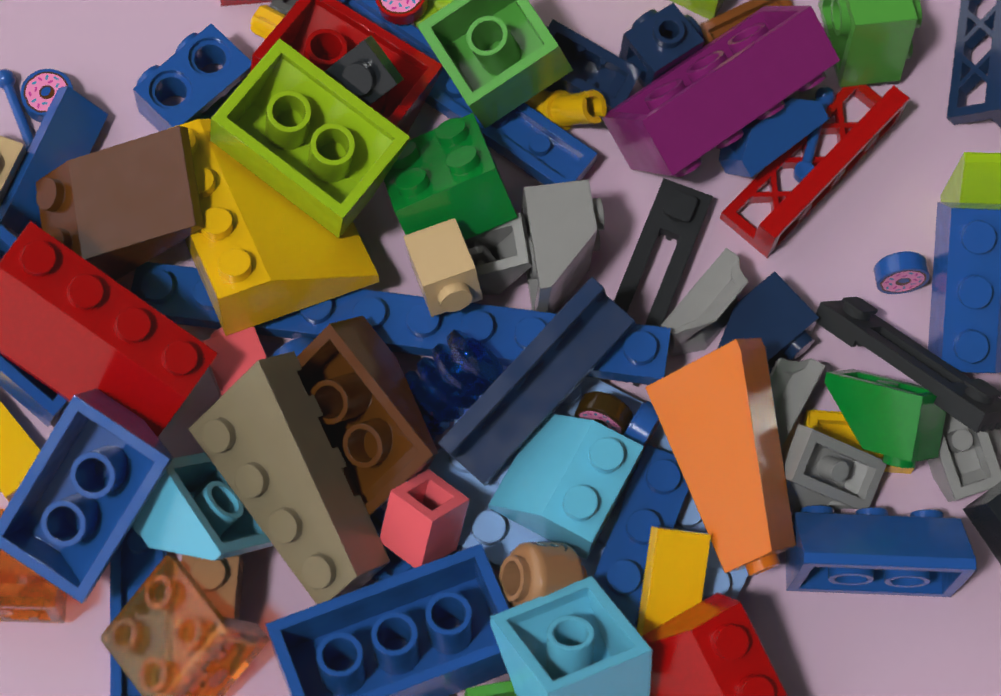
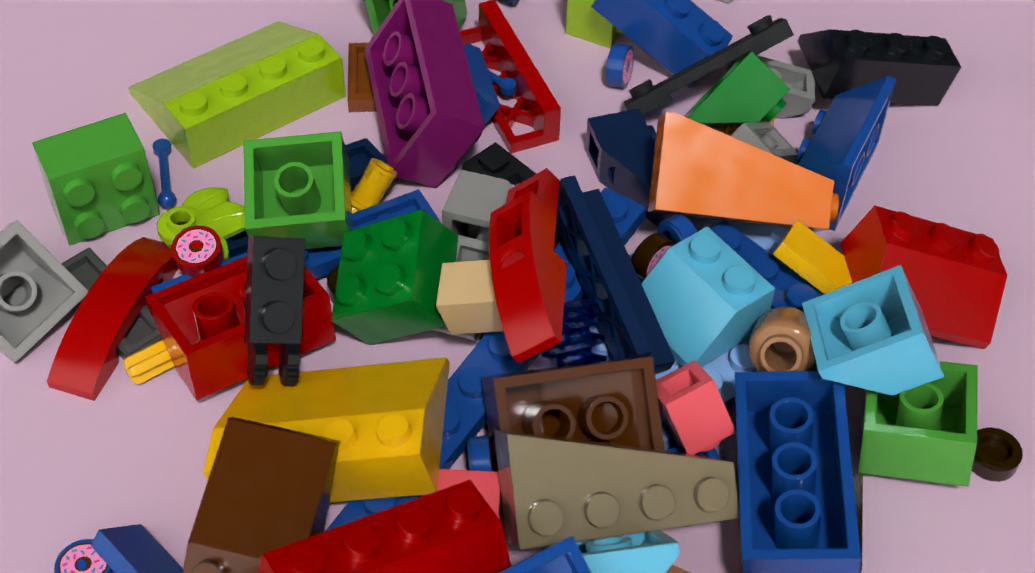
camera: 60 degrees left, 20 degrees down
(183, 77) = (156, 440): blue brick -> none
(308, 137) = (303, 335): lime slope -> none
(456, 296) = (525, 268): none -> red slope
(660, 42) = (354, 114): dark blue brick -> none
(706, 306) = (586, 156): light grey slope -> none

